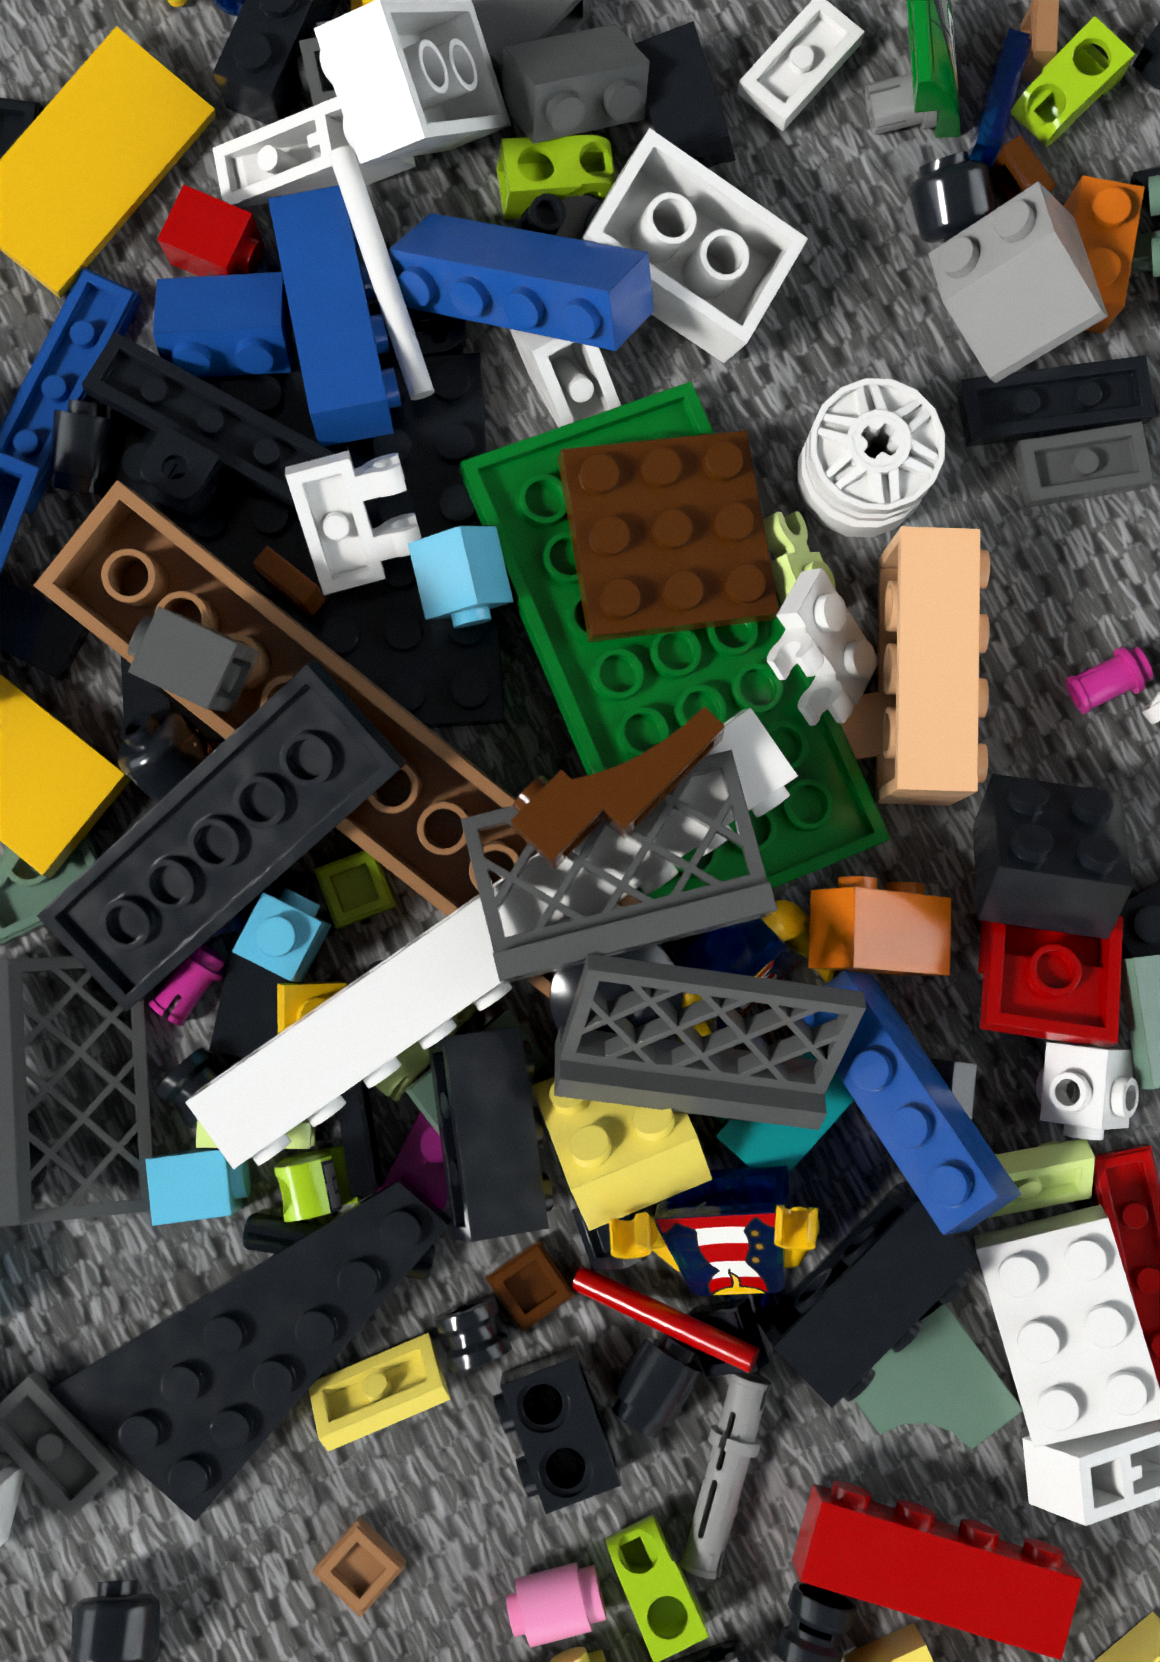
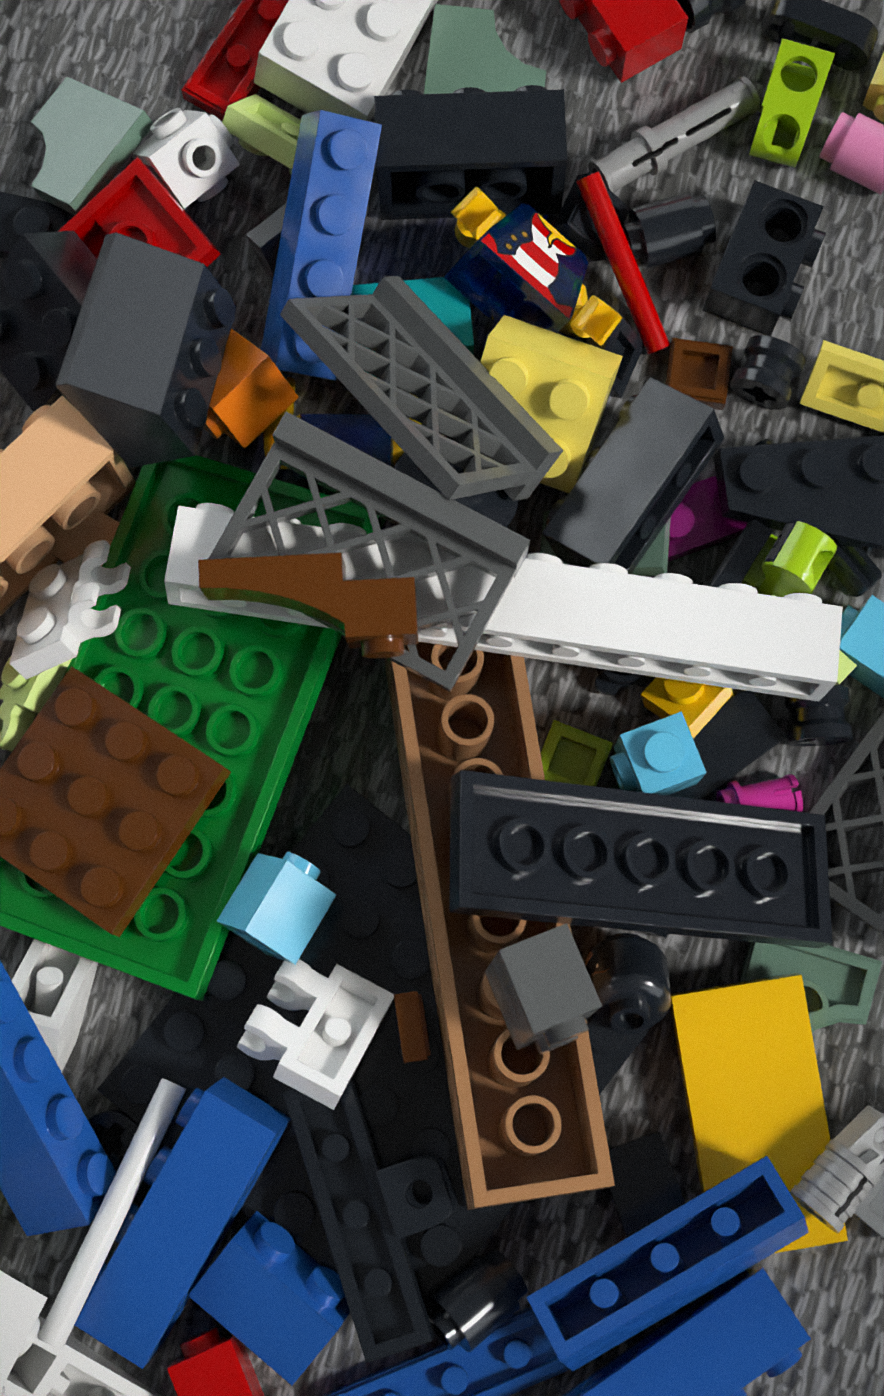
camera: 130 degrees left, 5 degrees down
(947, 884) = (147, 350): none -> black slope

